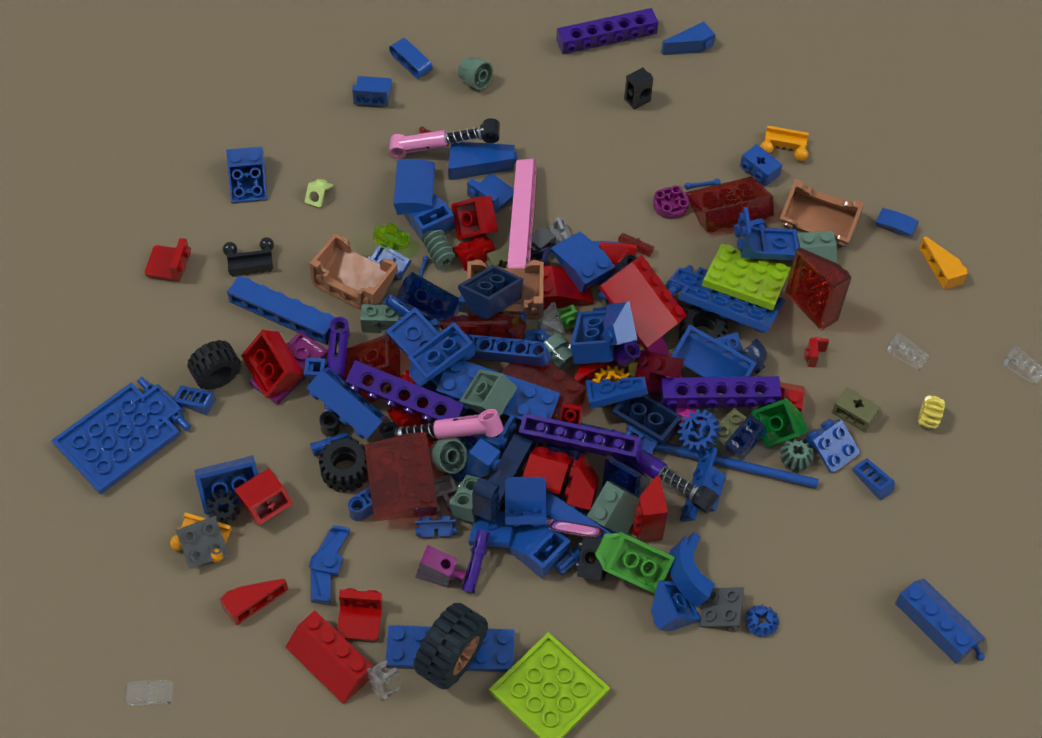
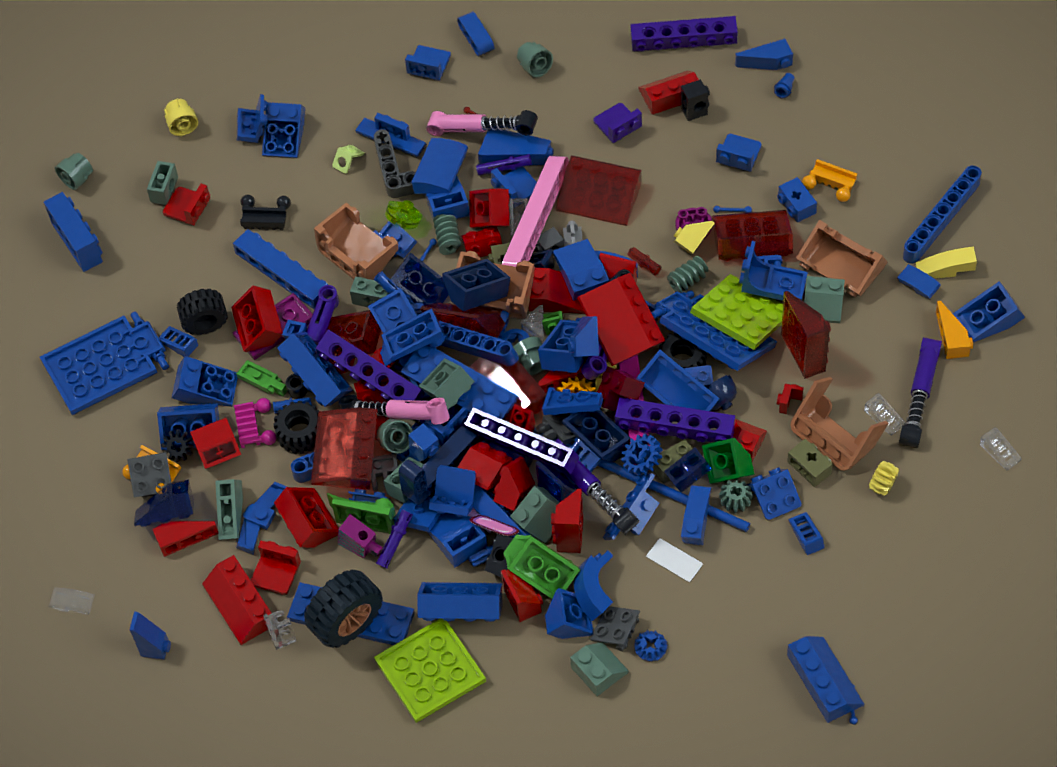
camera: 20 degrees right, 0 degrees up
(42, 246) = (74, 170): none -> sand green piece
(57, 306) = (74, 231): none -> blue brick
(138, 244) = (162, 182): none -> sand green brick
(140, 178) = (180, 117): none -> light yellow piece
(214, 173) = (251, 122): none -> blue bracket
(227, 570) = (169, 503): none -> clear blue slope
(232, 437) = (204, 383): none -> blue slope
(248, 718) = (149, 638): none -> blue slope
(289, 471) = (248, 426): none -> dark pink gear
(291, 422) = (261, 378): none -> bright green hinge
(294, 562) = (229, 508): none -> sand green slope
(355, 161) = (398, 132): none -> blue bracket
(364, 189) = (388, 163): none -> dark grey beam
(376, 555) = (306, 516): none -> red slope
(449, 540) = (375, 515): none -> bright green slope
(495, 168) = (524, 161): none -> dark purple pin
(503, 217) = (517, 207): none -> clear slope
(563, 613) = (459, 601): none -> blue brick
(571, 119) = (618, 122): none -> dark purple bracket
(573, 185) = (599, 190): none -> clear red slope
(604, 419) = (555, 429): none -> dark grey hinge
(608, 85) = (666, 92): none -> red slope
(620, 595) = (521, 596): none -> red slope
(676, 214) = (692, 235): none -> light yellow slope
(683, 250) = (687, 273): none -> sand green piece
(692, 130) = (738, 152): none -> blue bracket
(714, 65) = (784, 86): none -> blue cone
(717, 654) = (597, 667): none -> sand green slope
(756, 529) = (674, 560): none -> white sticker
(766, 481) = (696, 515): none -> blue slope
(845, 372) = (832, 440): none -> nougat windscreen
(896, 158) = (942, 214): none -> blue beam
(919, 200) = (949, 263): none -> light yellow slope
(929, 285) = (920, 391): none -> piece
(972, 239) = (989, 313): none -> blue slope

